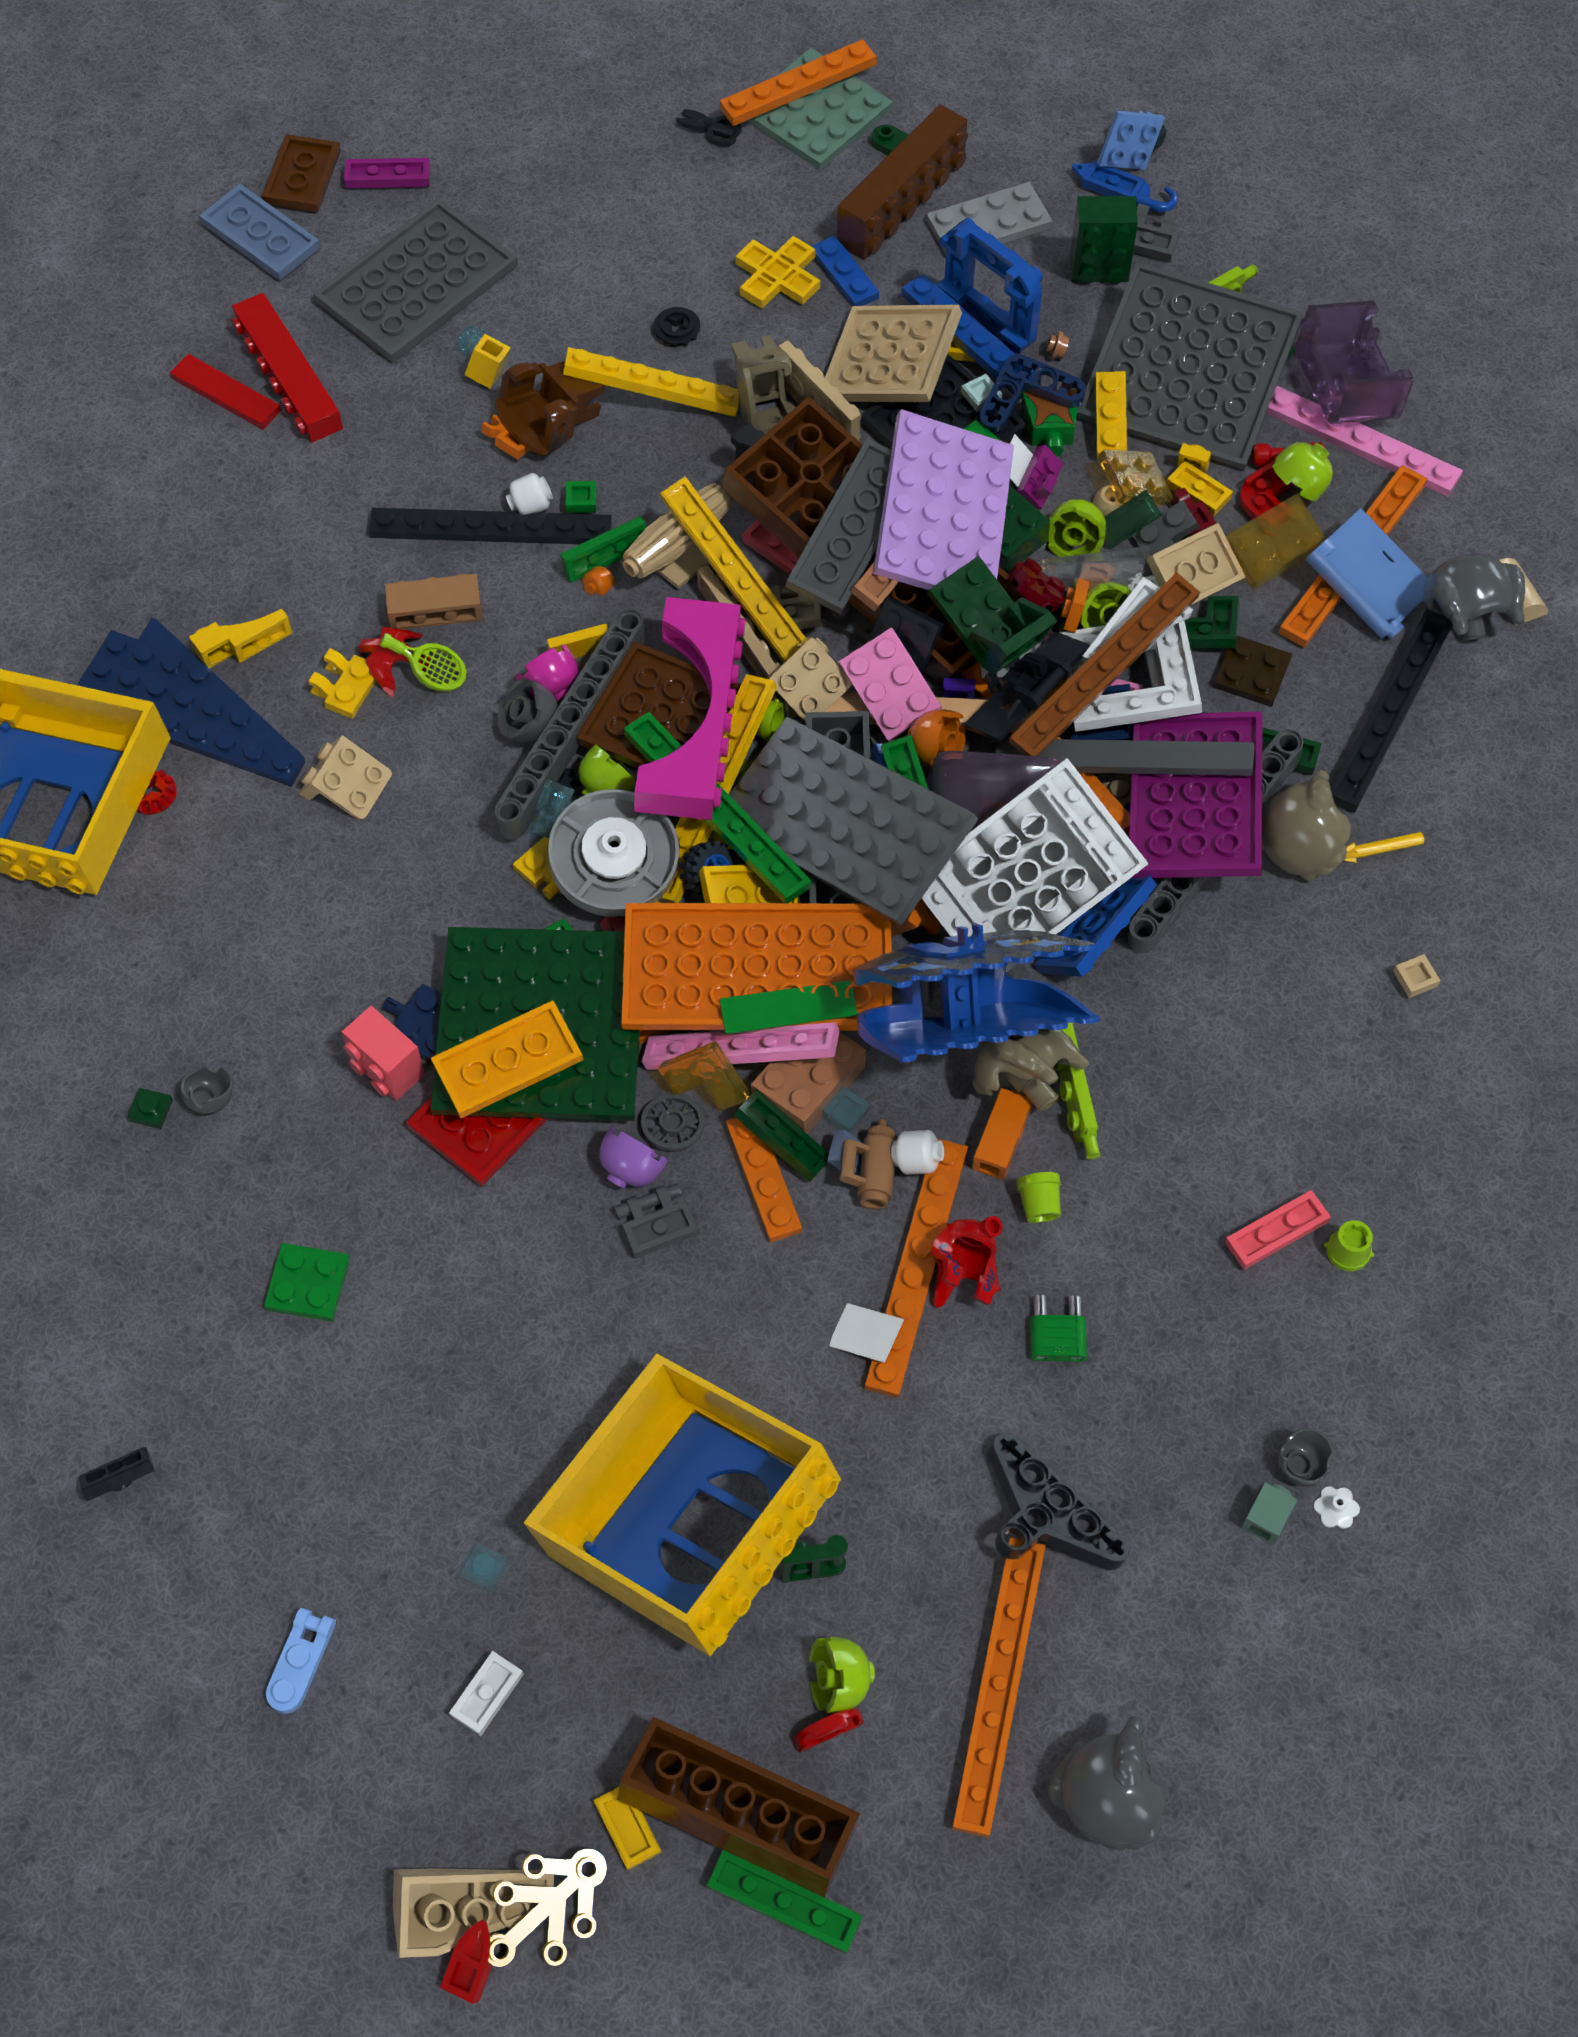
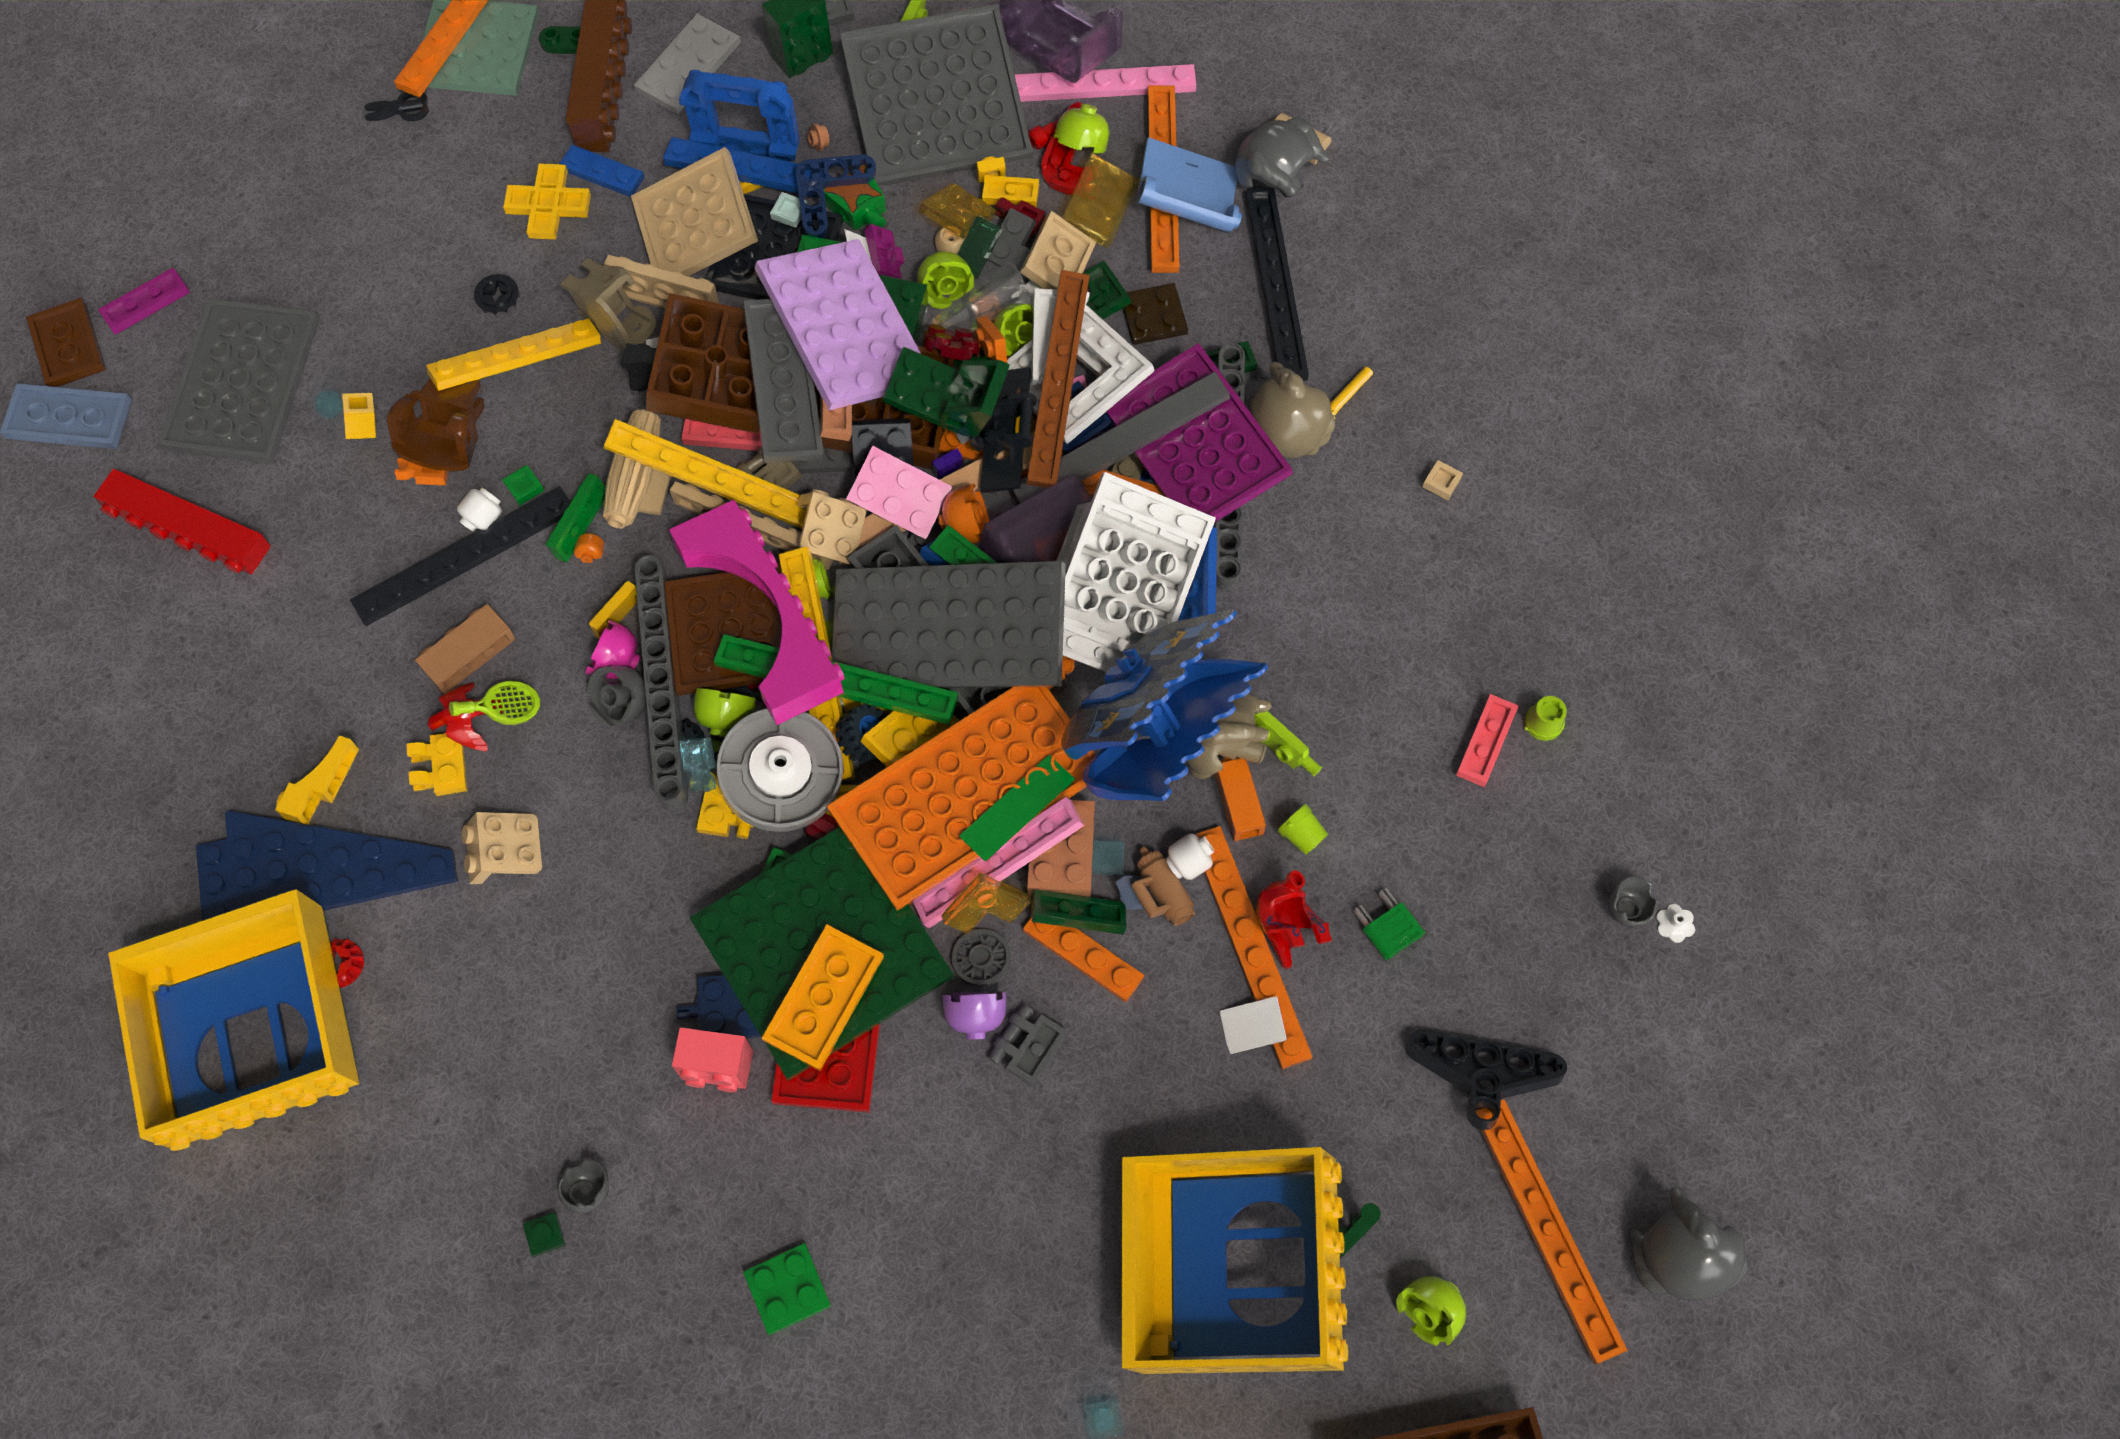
camera: 35 degrees left, 5 degrees up
(225, 391) = (140, 574): red tile -> none
(827, 1729) = (1452, 1358): red tile -> none
(1111, 411) = (902, 168): yellow plate -> none
(1269, 1513) = (1638, 961): sand green brick -> none

